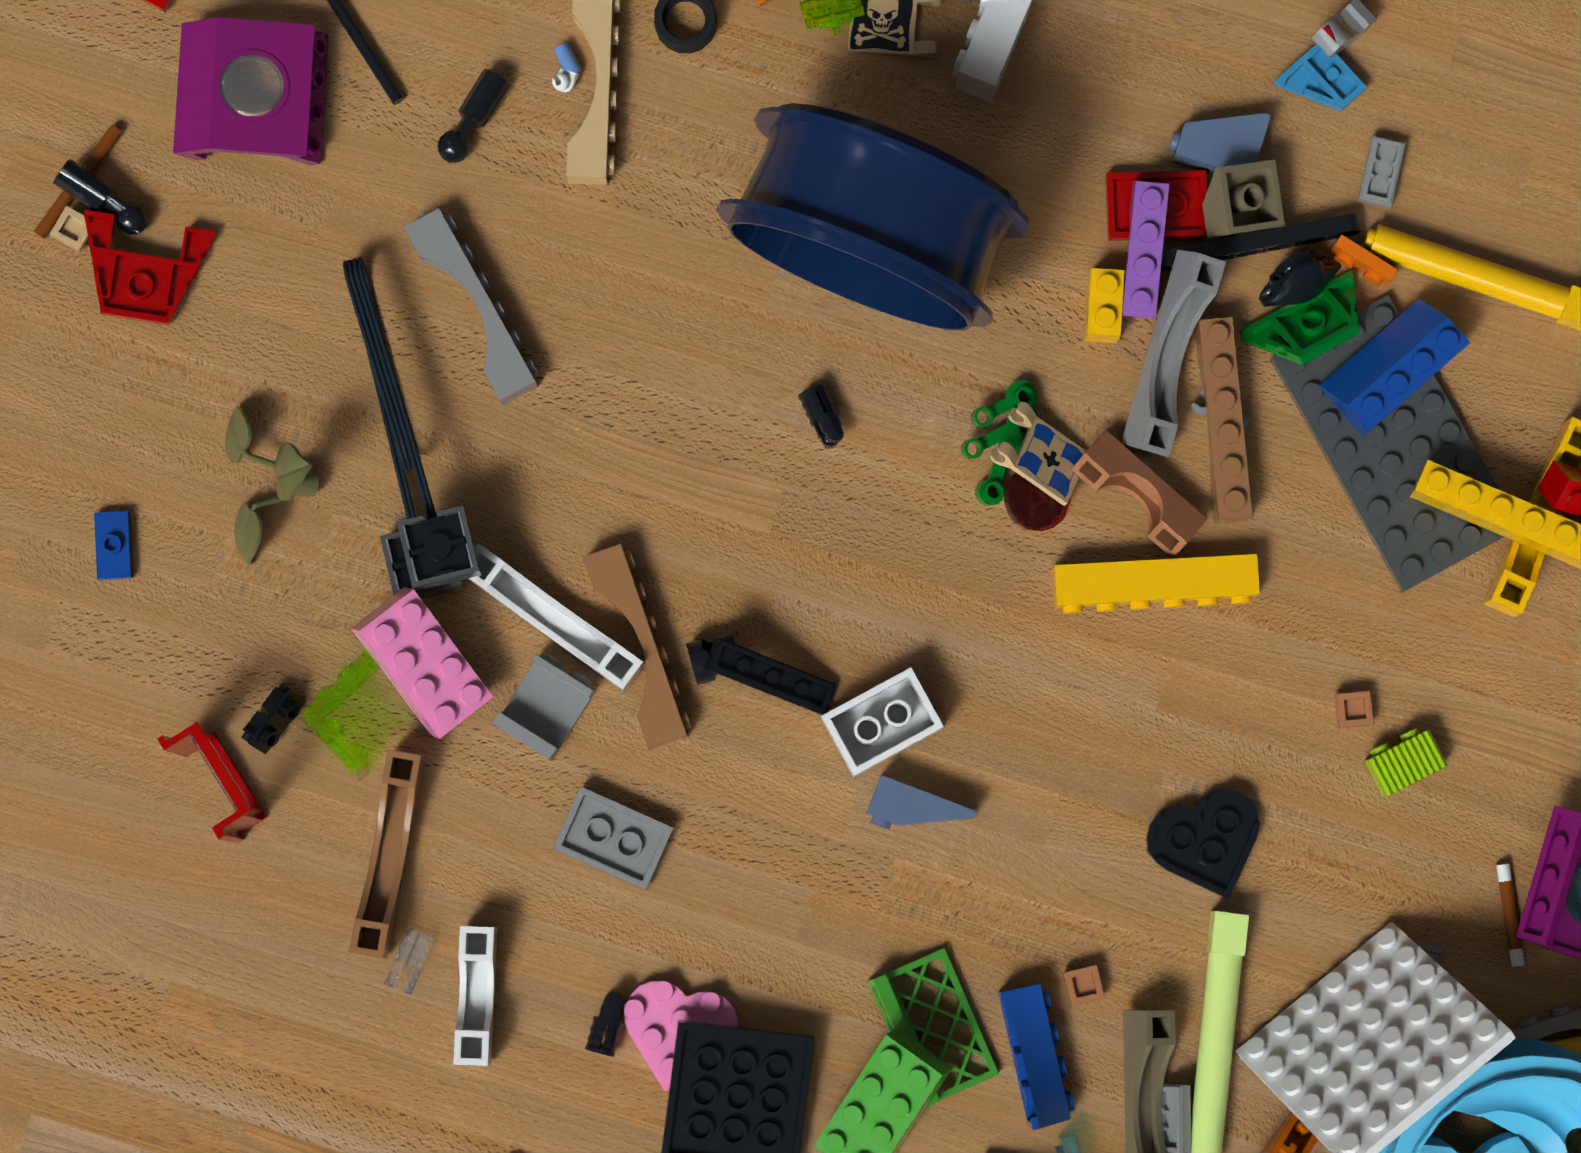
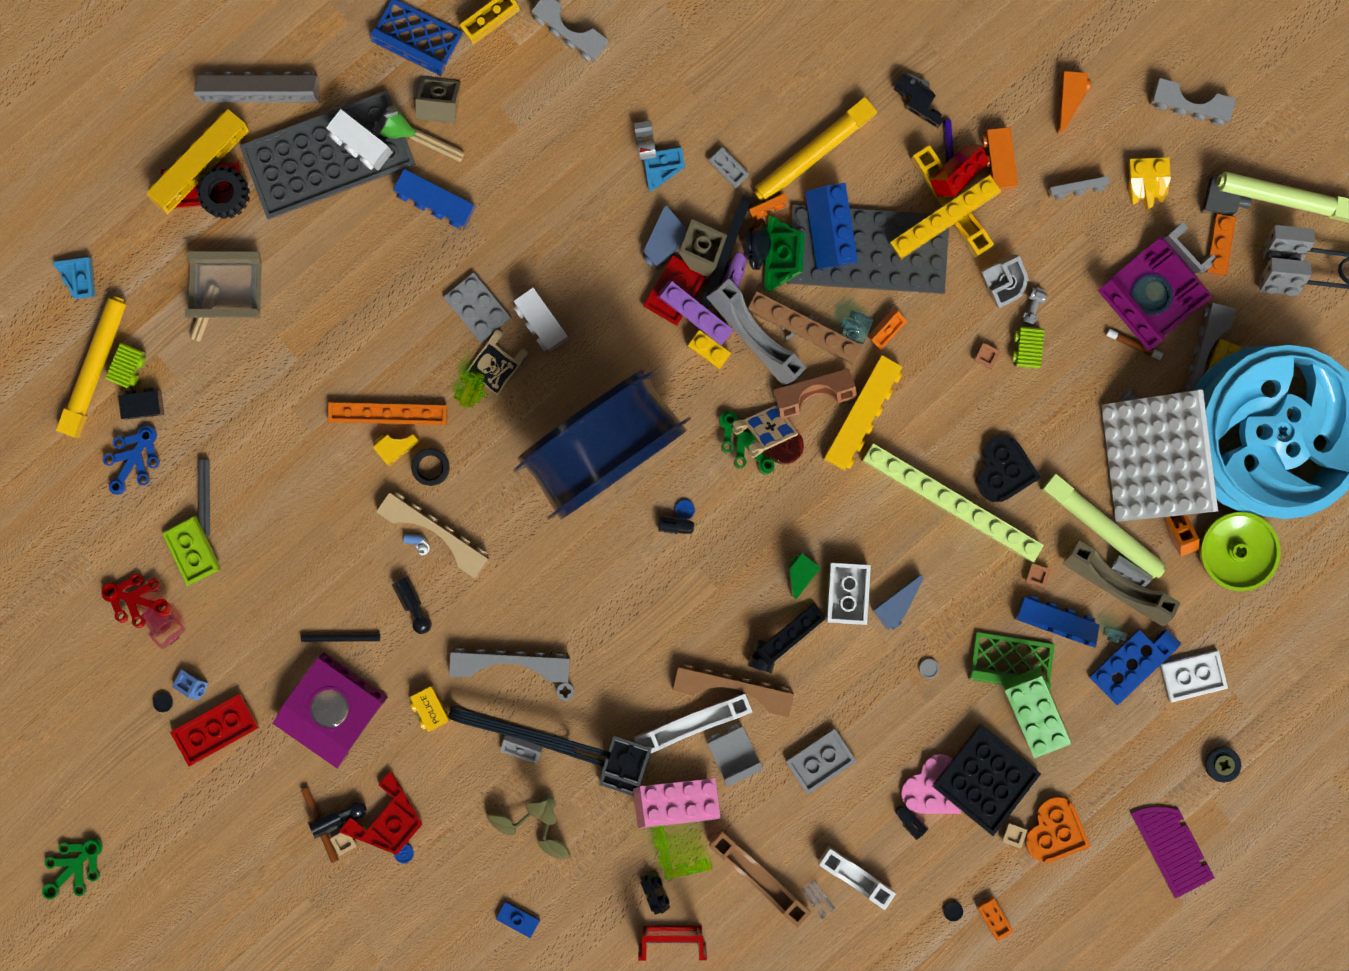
camera: 60 degrees left, 5 degrees up
(109, 328) = (405, 855): none -> blue piece
(340, 230) = (429, 708): none -> yellow brick
(363, 396) = (521, 749): none -> light grey plate
(482, 418) = (561, 696): none -> light grey bush
(847, 912) = (929, 668): none -> light grey piece
(854, 416) = (685, 509): none -> blue piece
(867, 635) = (800, 573): none -> green slope
(1109, 792) = (952, 503): none -> yellowish green brick
(1245, 272) = (736, 269): none -> medium lavender hinge
(1274, 493) = (856, 326): none -> clear light blue brick
(1299, 540) = (887, 328): none -> orange plate
(1481, 665) = (1005, 280): none -> light grey brick
(1487, 728) = (1037, 296): none -> light grey bar

